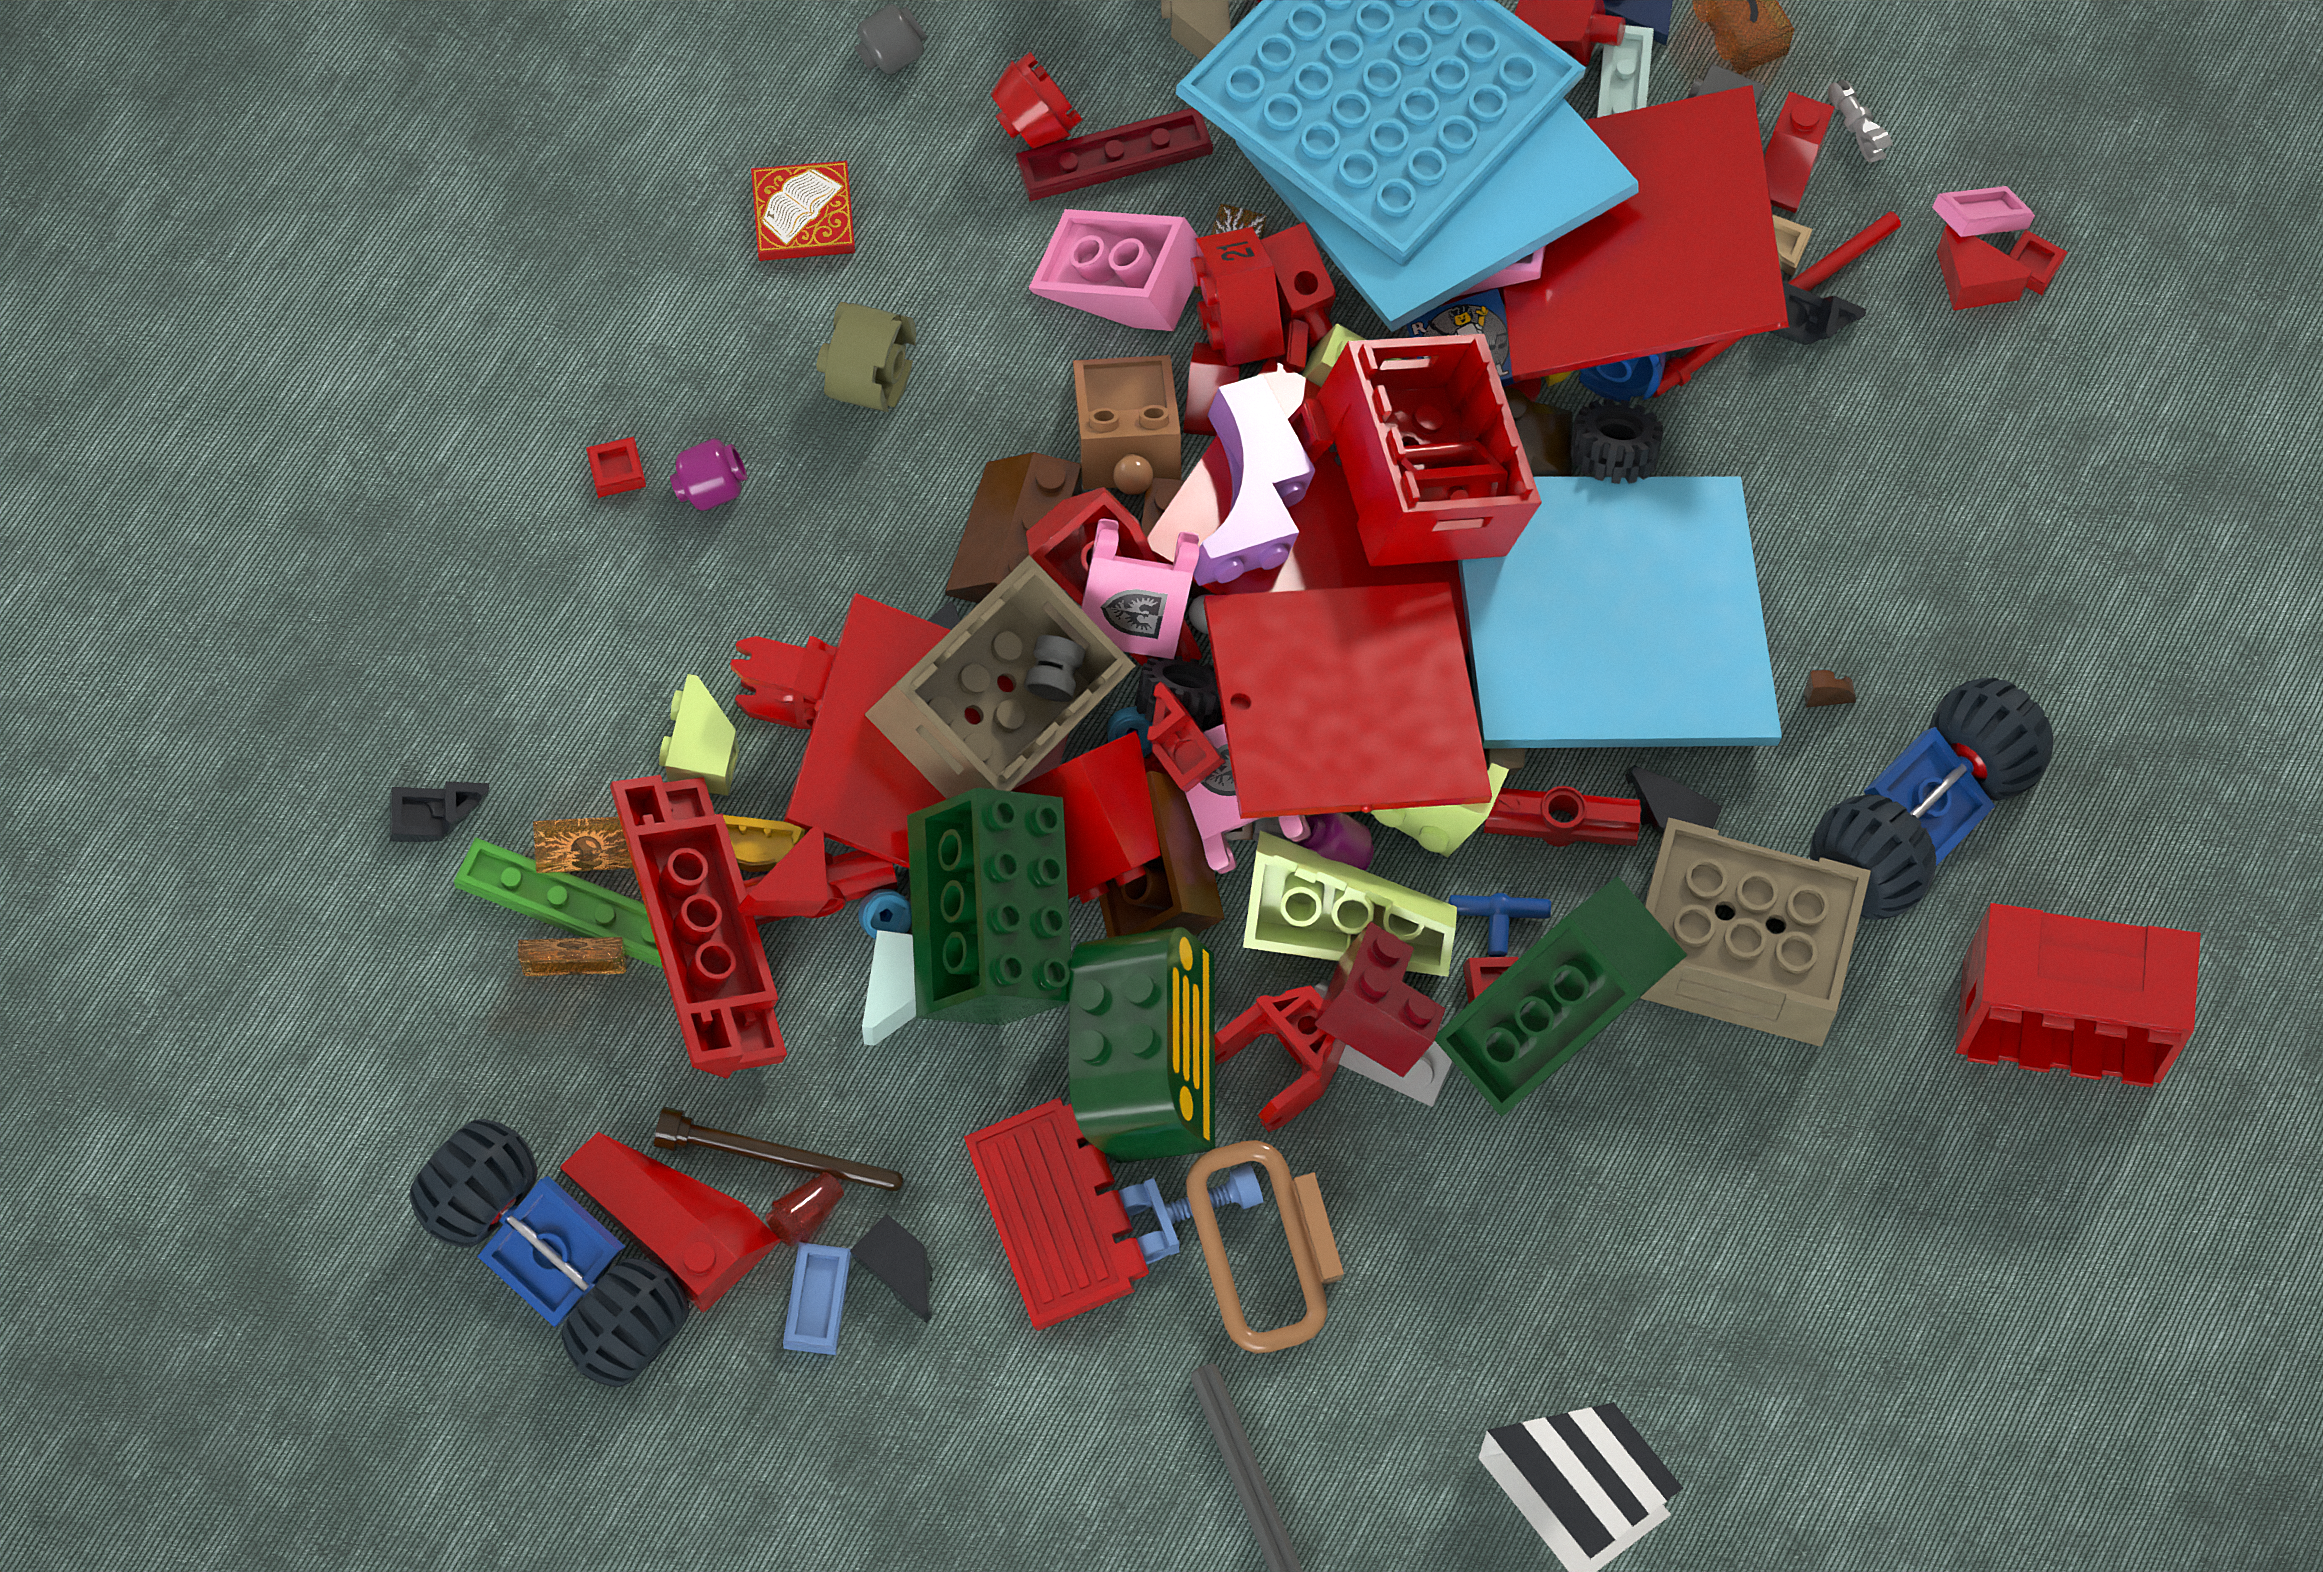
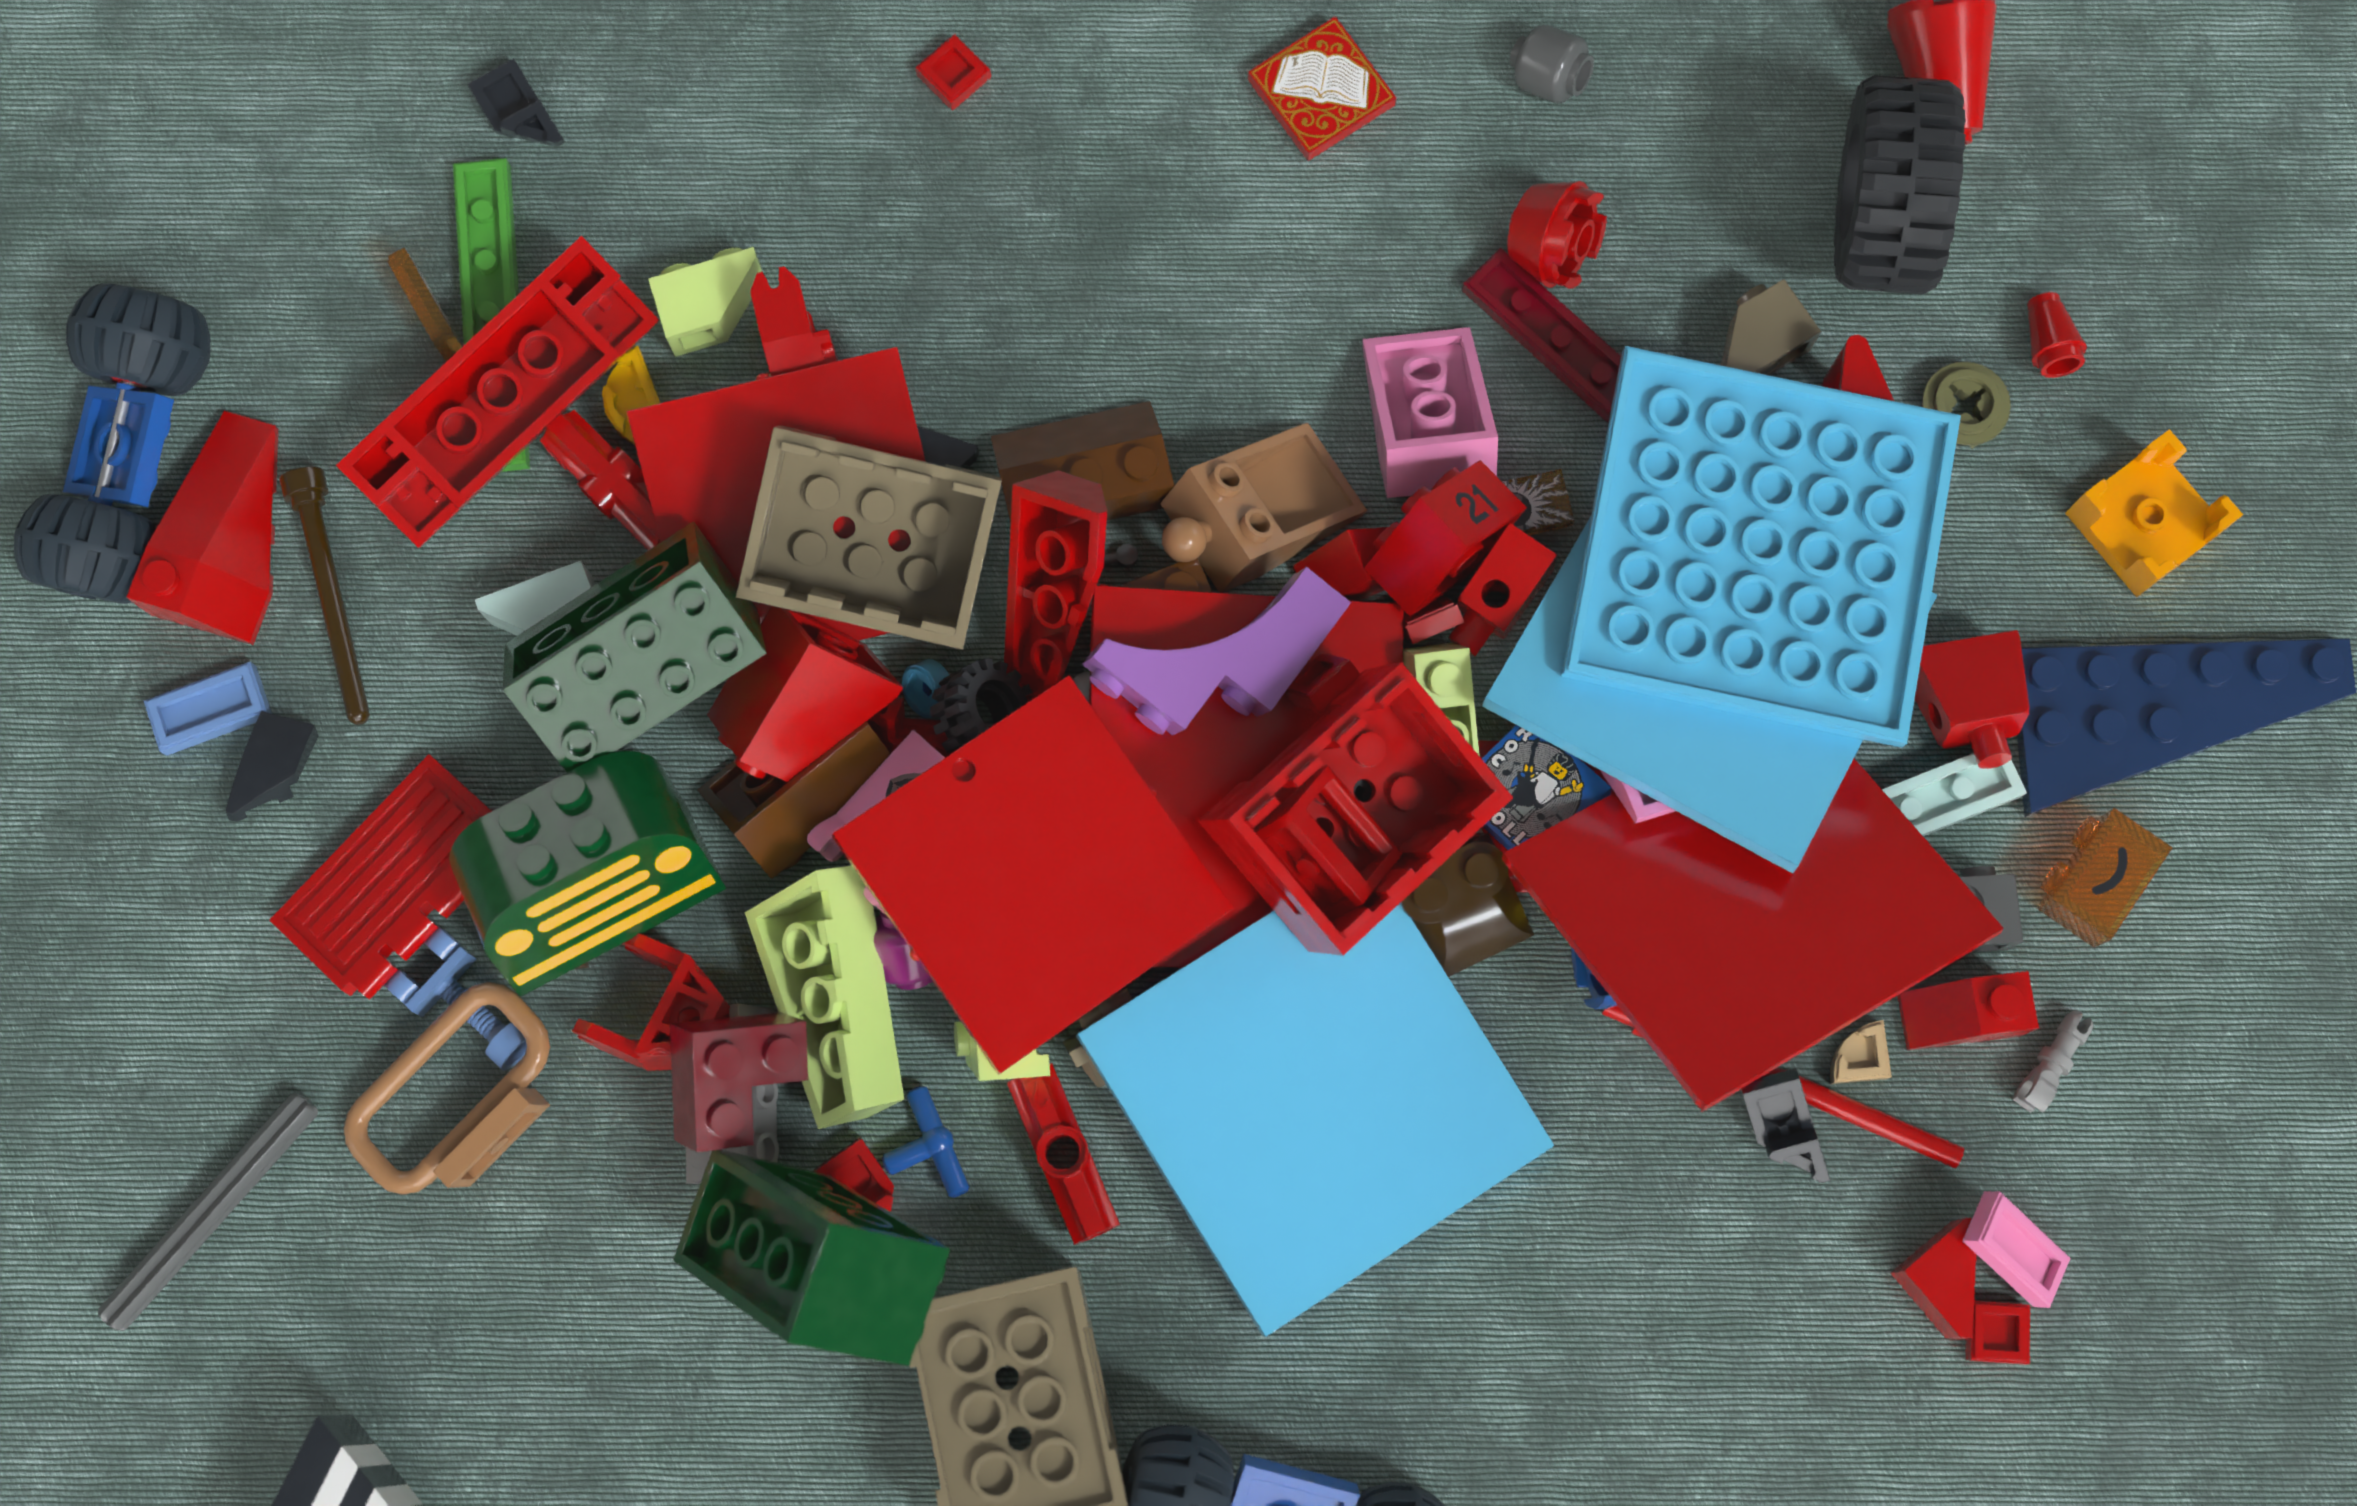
camera: 65 degrees right, 10 degrees up
(580, 845) = (533, 237): clear orange tile -> none
(708, 474) = (983, 155): magenta head -> none
(795, 884) = (572, 455): red slope -> none
(804, 1209) = (280, 647): clear red cone -> none
(867, 356) = (1182, 227): olive brick -> none
(885, 912) = (611, 554): dark azure tile -> none
(1054, 668) = (935, 566): dark grey wheel -> none
(1139, 600) = (1036, 609): bright pink flag -> none
(1181, 742) = (915, 734): red slope -> none
(1616, 441) = (1537, 986): black tyre -> none
(1667, 798) = (1136, 1265): black slope -> none
(1825, 690) = (1362, 1360): reddish brown tile -> none

